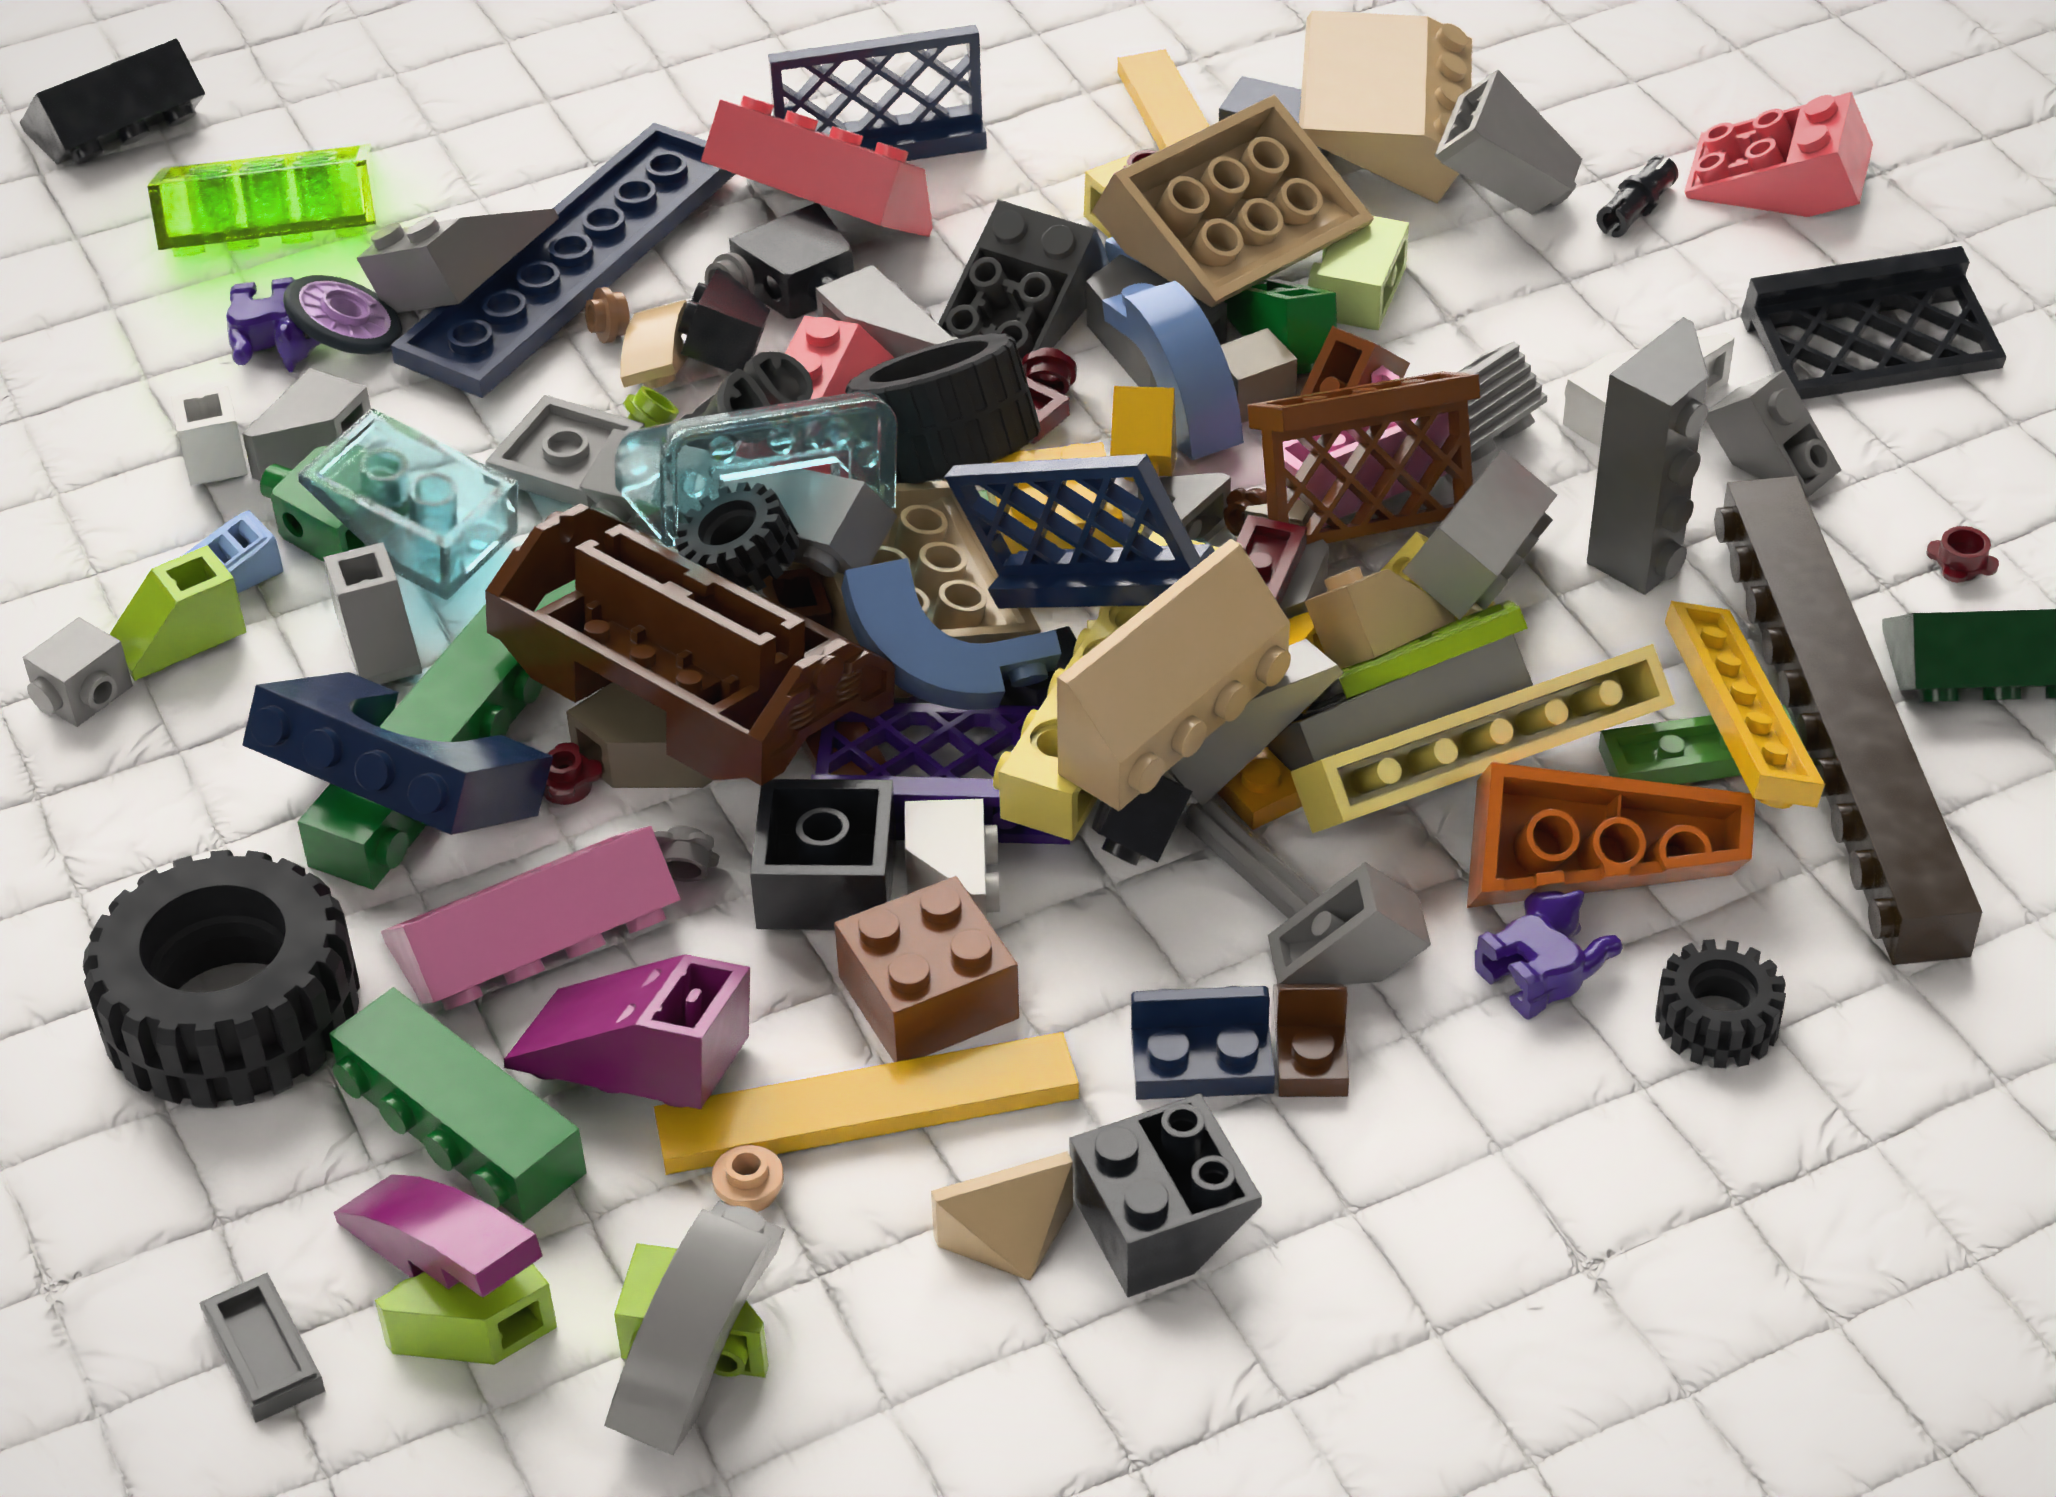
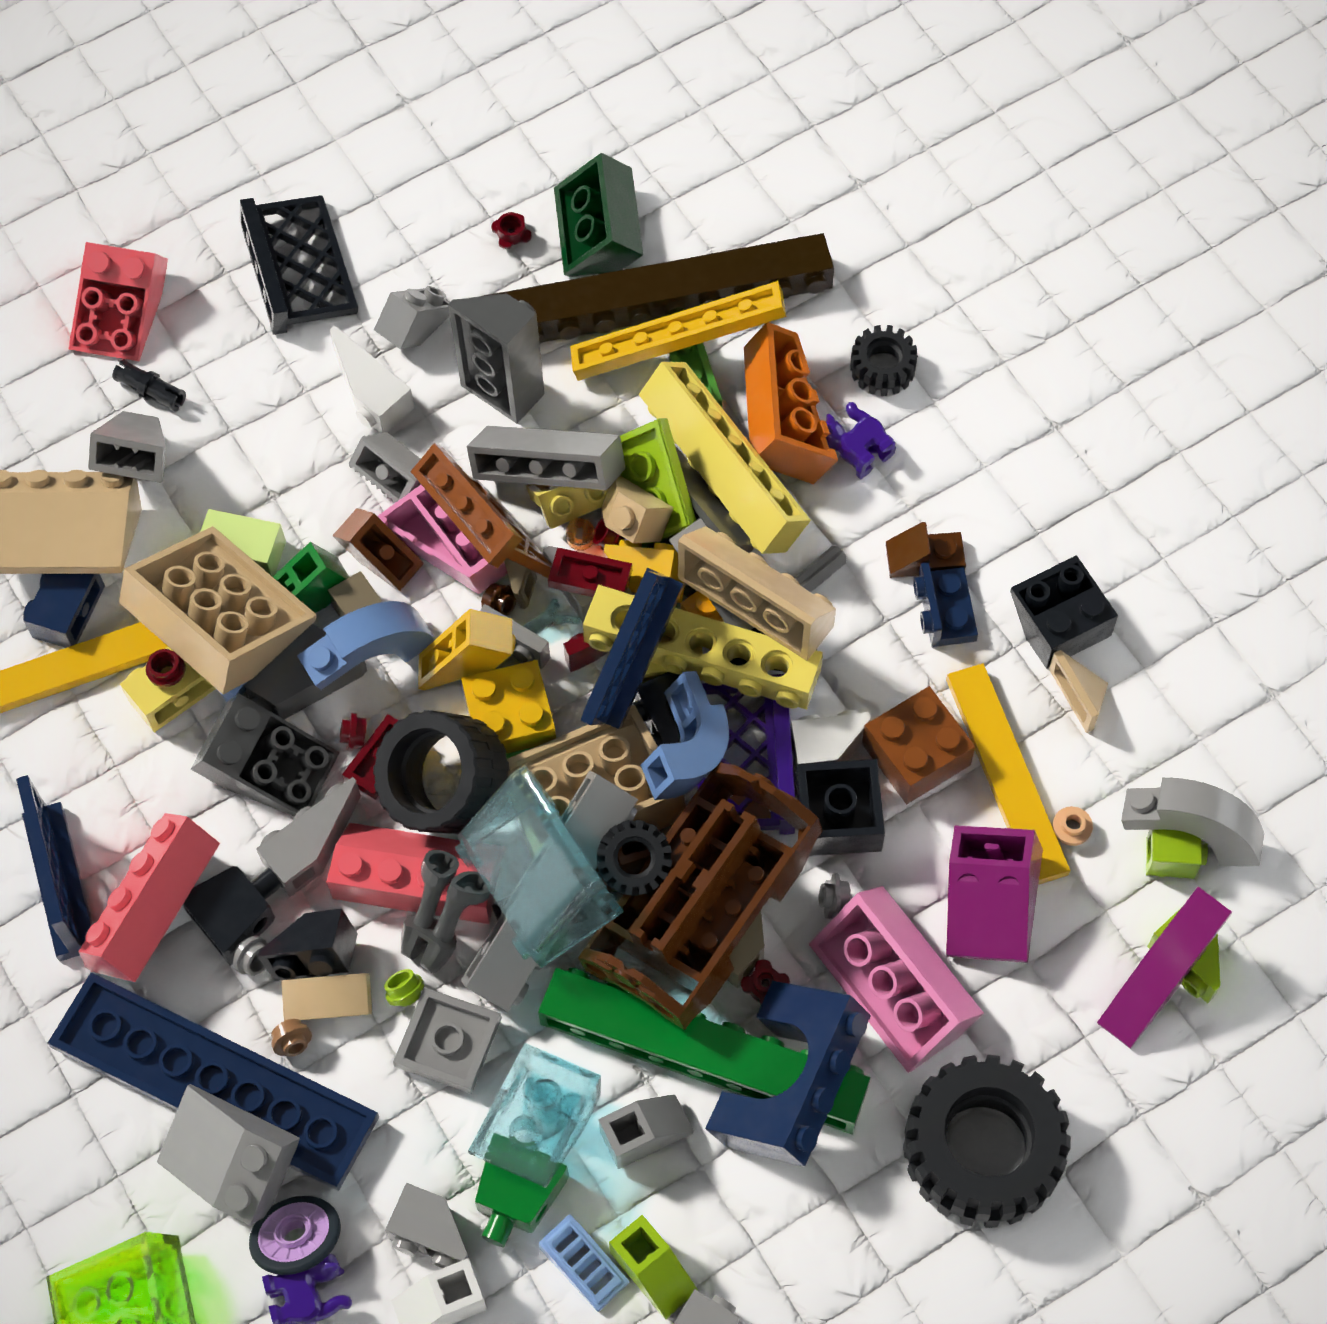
camera: 95 degrees left, 20 degrees up
(262, 1347) = (1227, 1066): tile -> none
(457, 1105) = (1051, 988): brick -> none
(1351, 932) = (861, 534): light grey slope -> none

